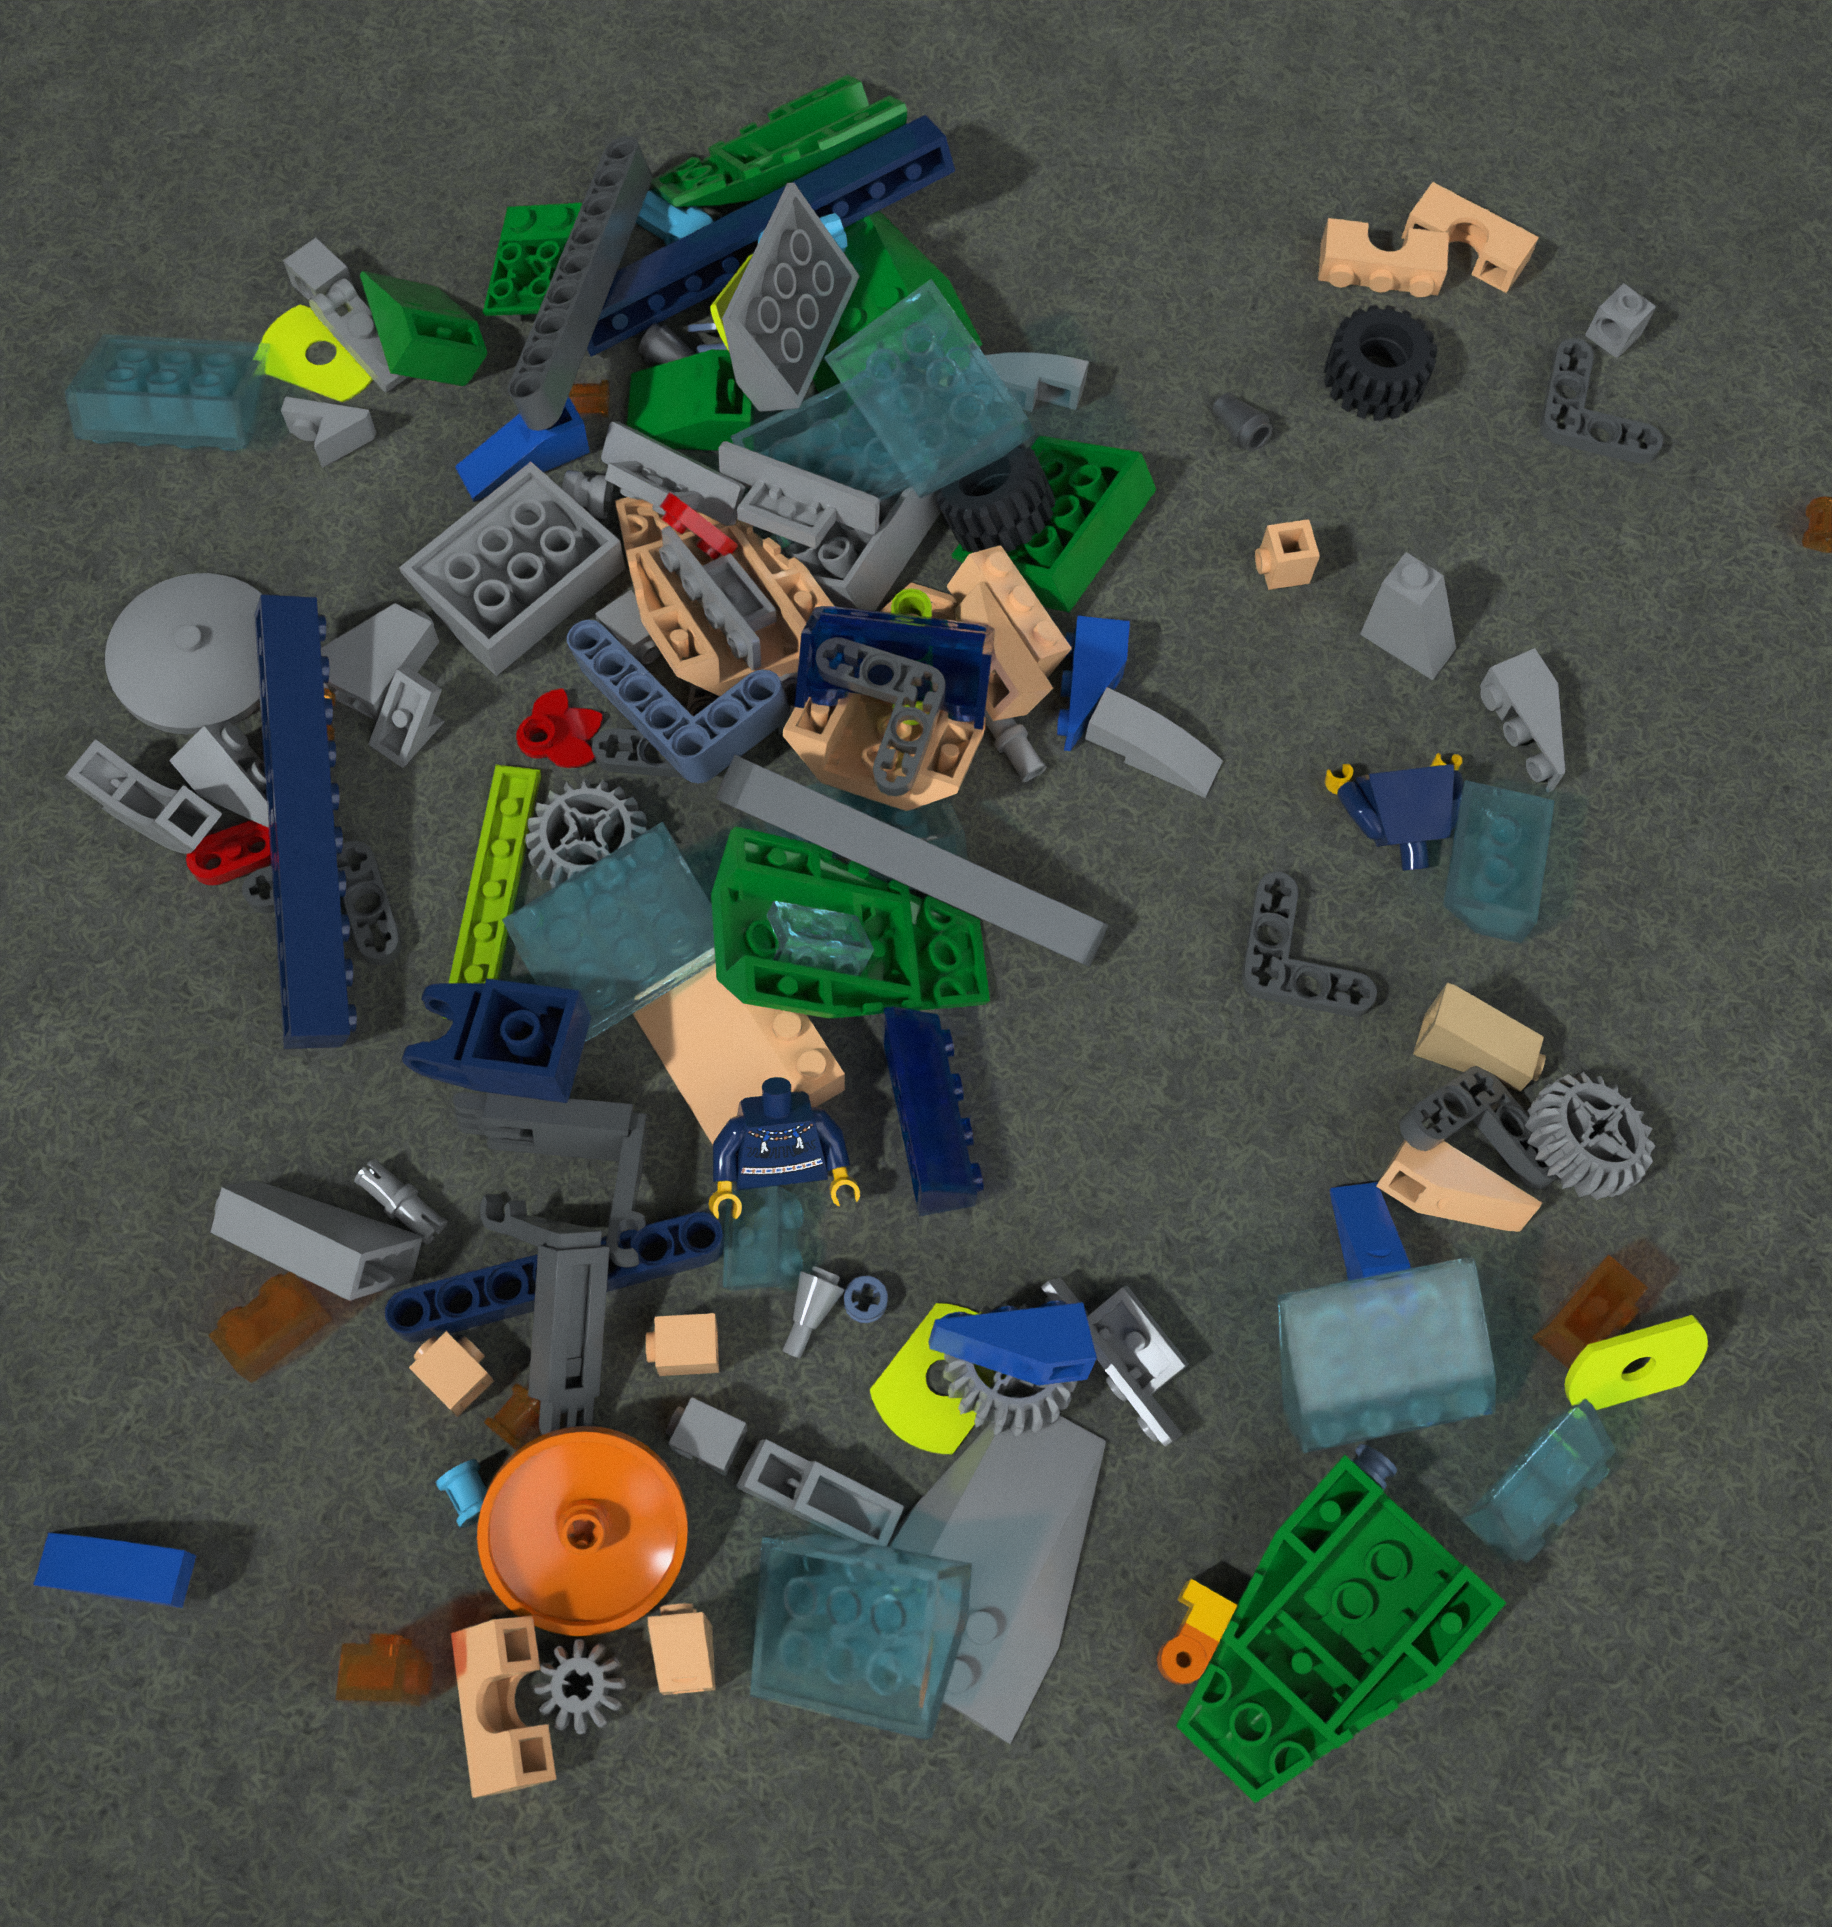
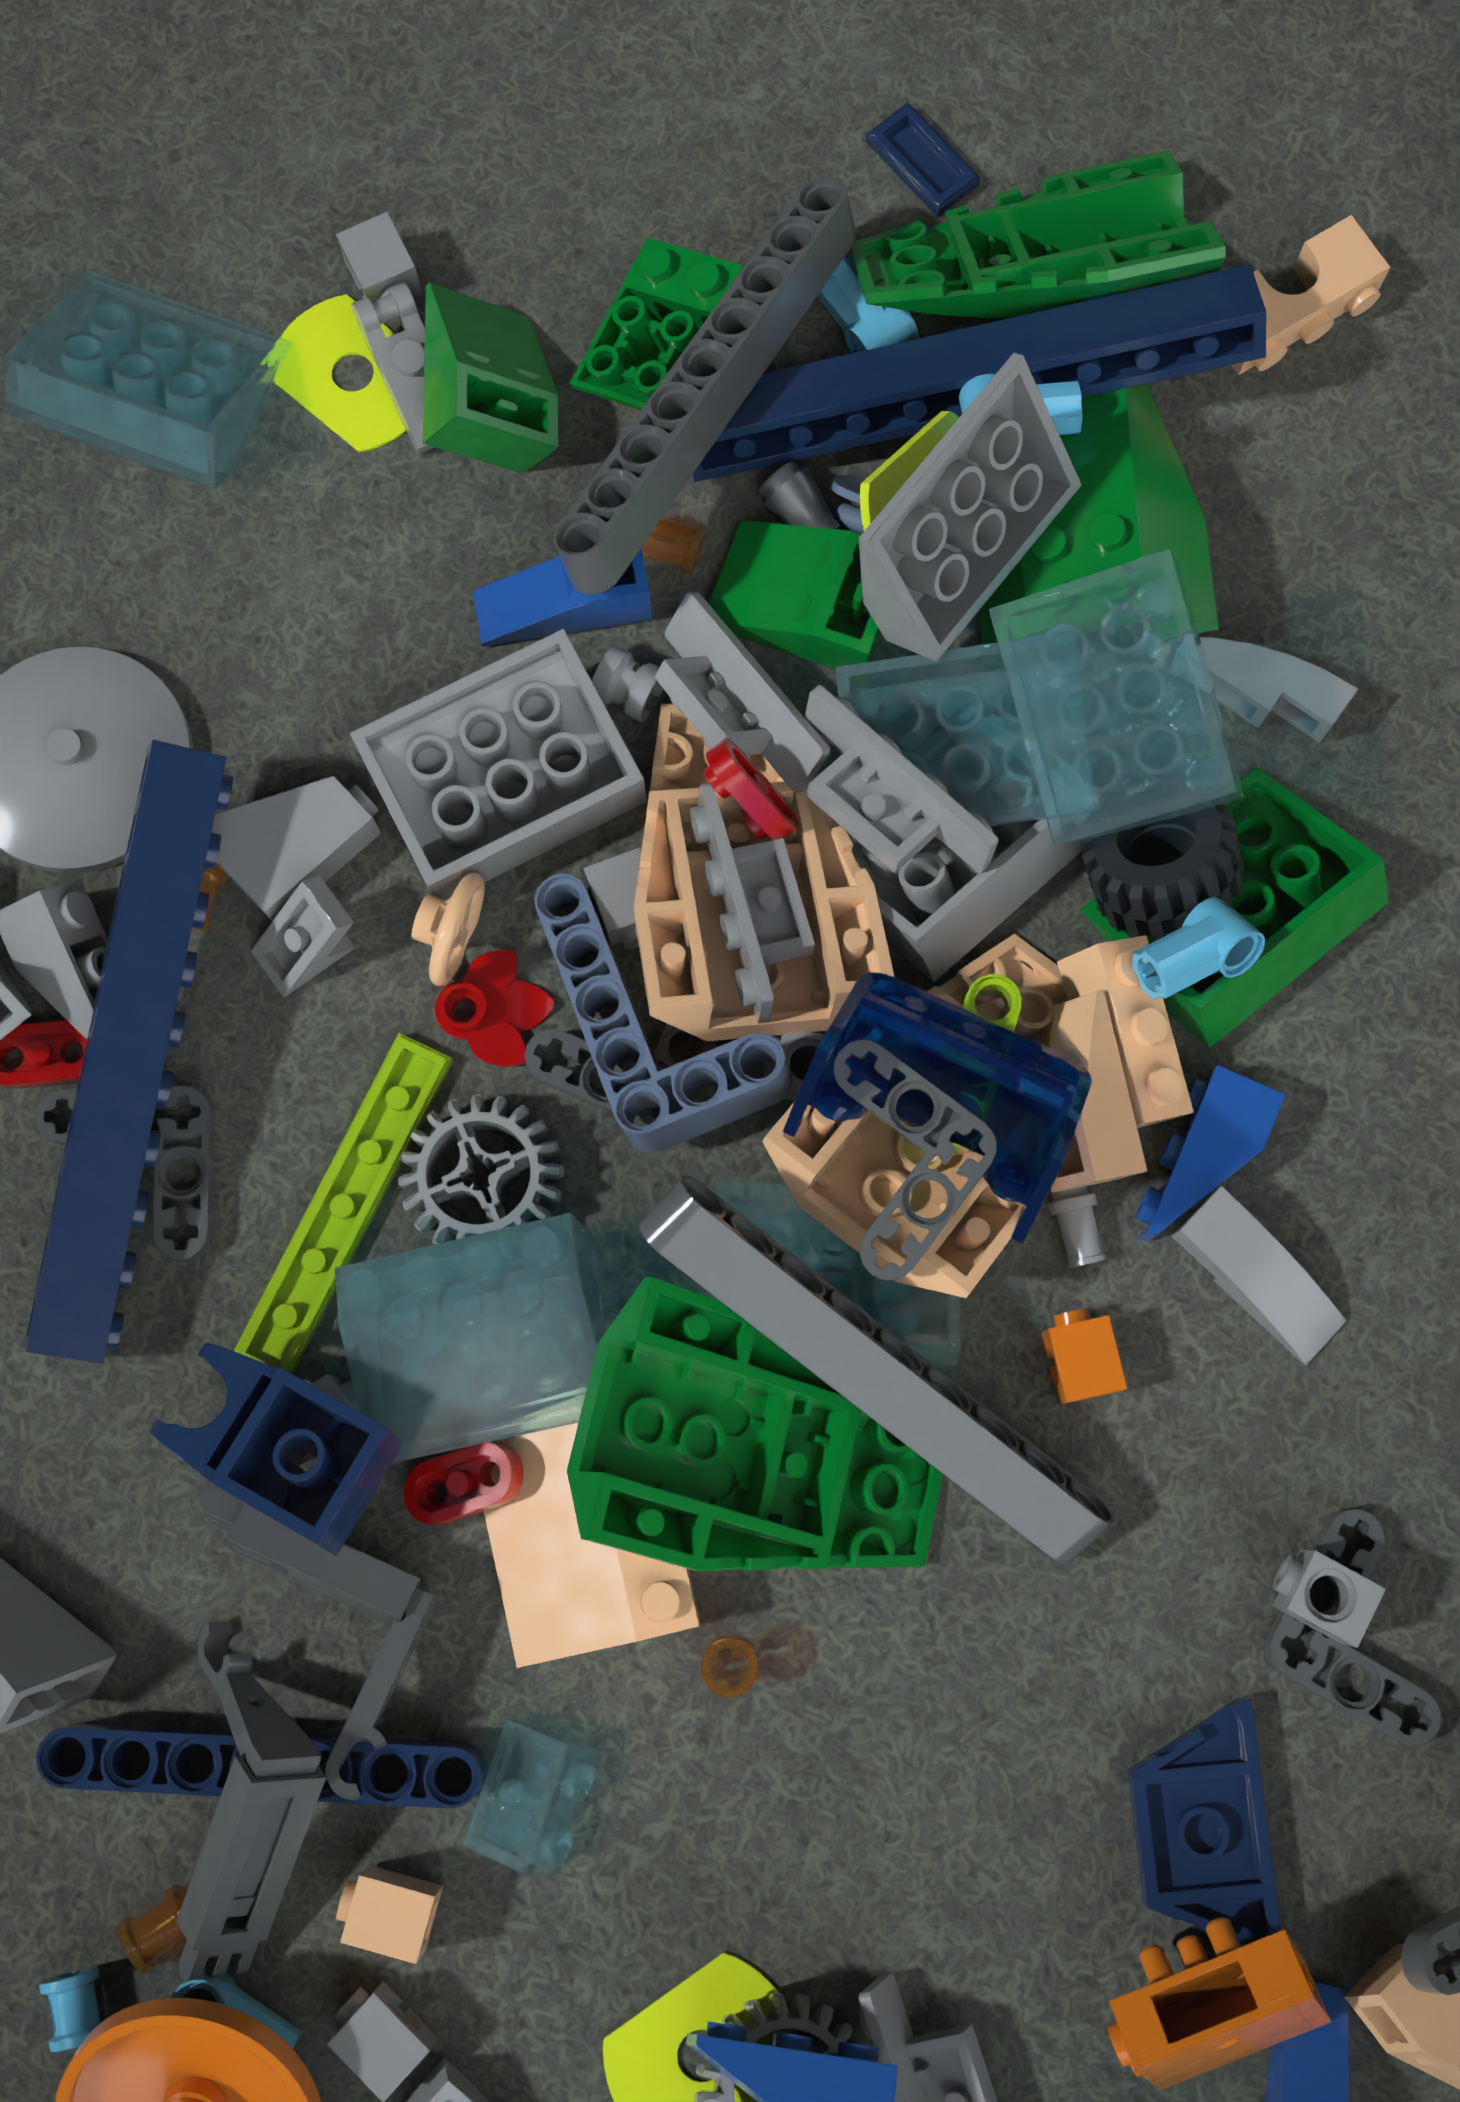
camera: 25 degrees right, 10 degrees up
(332, 427) = (333, 493): light grey slope -> none
(400, 1201) = (106, 1594): light grey pin -> none
(452, 1371) = (99, 1844): light nougat brick -> none
(511, 678) = (448, 926): none -> light nougat piece
(642, 1037) = (467, 1481): none -> red plate
(681, 122) = (922, 159): none -> dark blue tile
(778, 1143) = (586, 1688): dark blue torso -> none
(814, 1300) = (573, 1899): light grey cone -> none
(819, 938) = (718, 1450): clear light blue bracket -> none
(856, 1287) = (641, 1940): sand blue bush -> none
(877, 1090) = (748, 1673): none -> clear orange bush
(929, 1111) = (794, 1709): clear blue slope -> none
(987, 123) = (1339, 275): none -> light nougat arch
(1041, 533) = (1208, 942): none -> medium azure piece
(1053, 831) = (1083, 1356): none -> orange brick
(1246, 1113) = (1207, 1827): none -> dark blue wing
(1283, 912) = (1354, 1596): none -> light grey brick
(1291, 1206) = (1214, 2006): none -> orange piece

